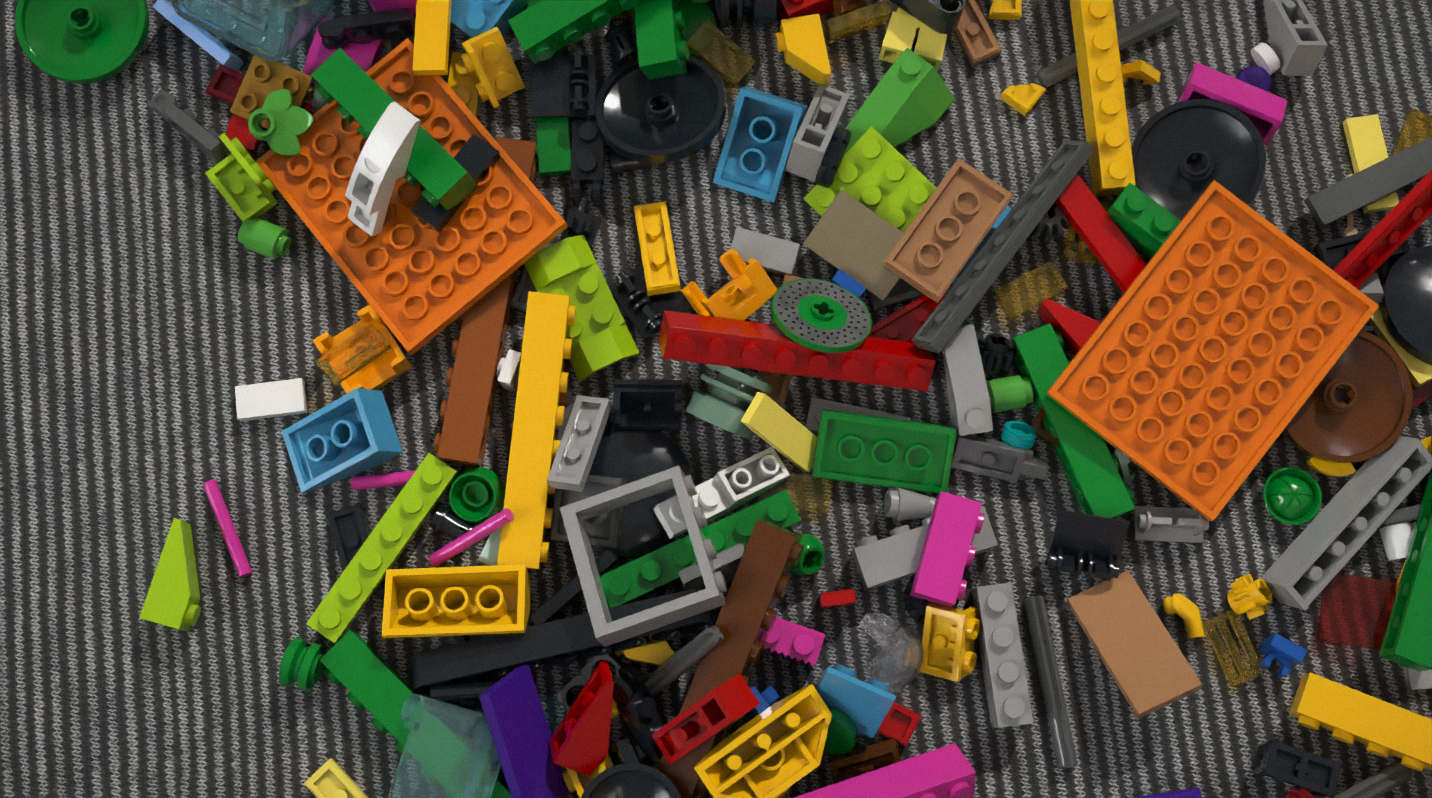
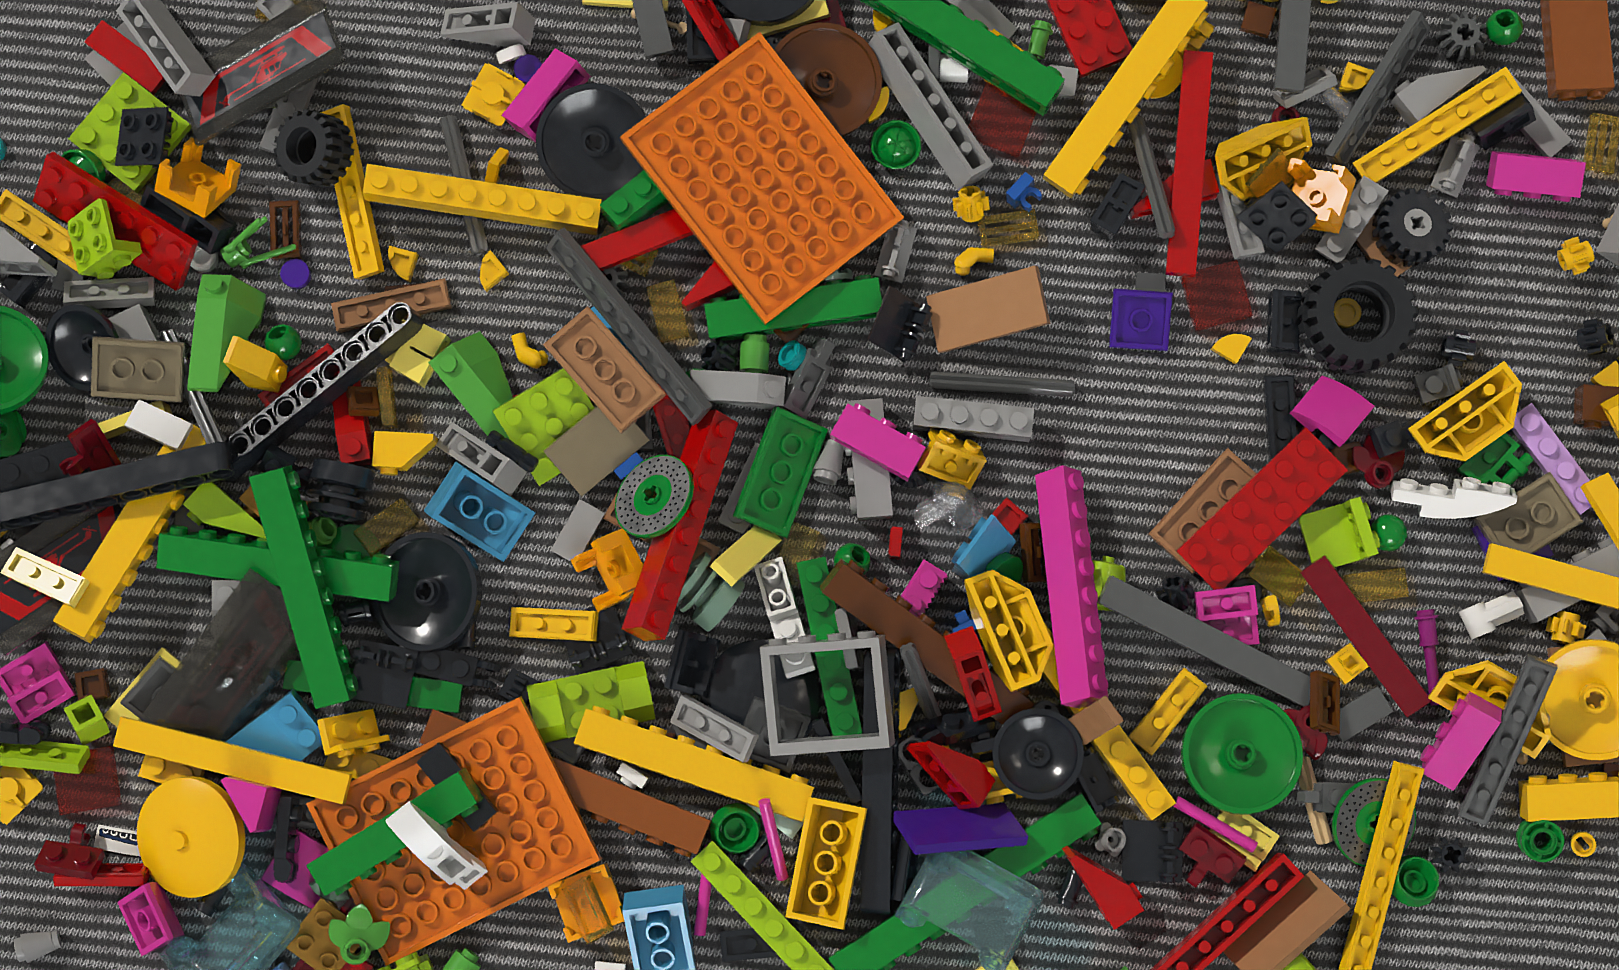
camera: 70 degrees left, 5 degrees up
(942, 153) = (527, 355): none -> yellow arm
(1216, 49) = (492, 94): none -> yellow piece

